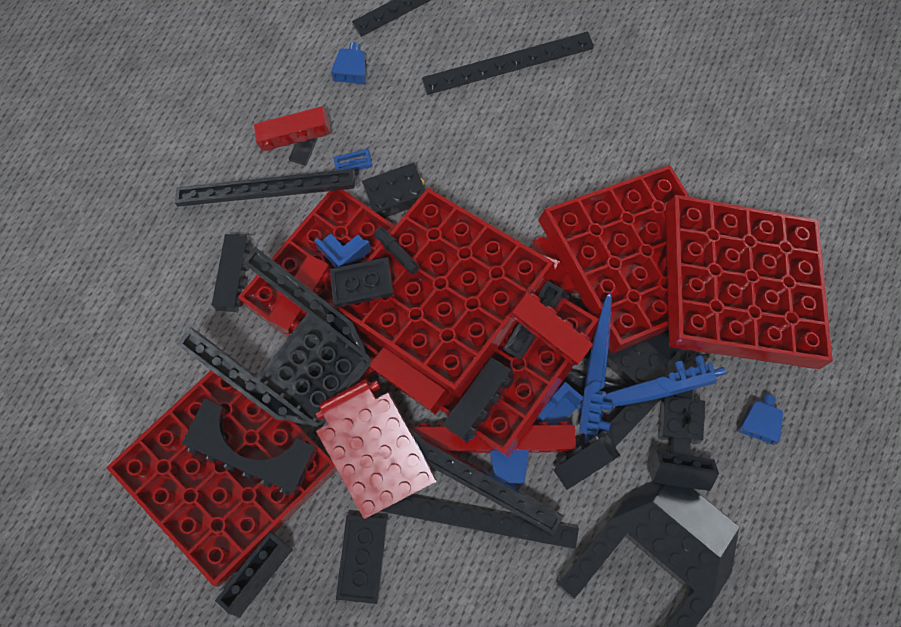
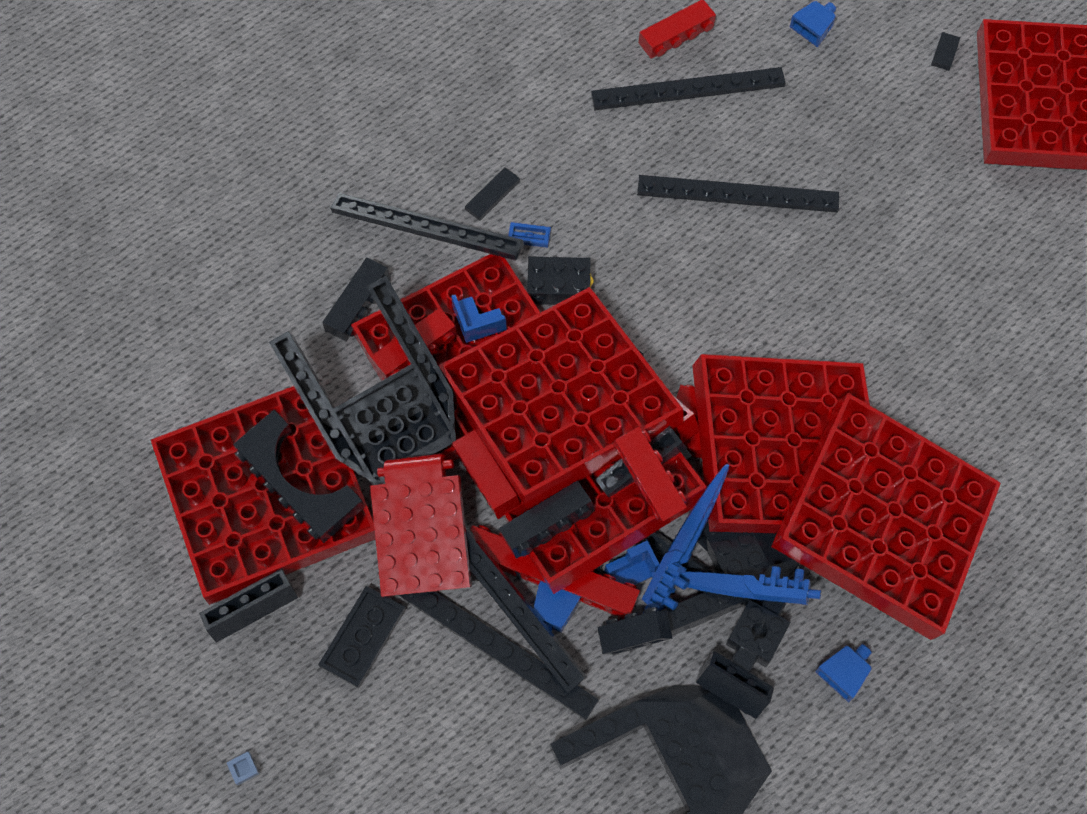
camera: 20 degrees right, 5 degrees down
(292, 128) = (480, 177): red brick -> none
(350, 65) = (569, 135): blue torso -> none
(361, 282) = (479, 355): black plate -> none
(391, 244) = (526, 330): black pin -> none

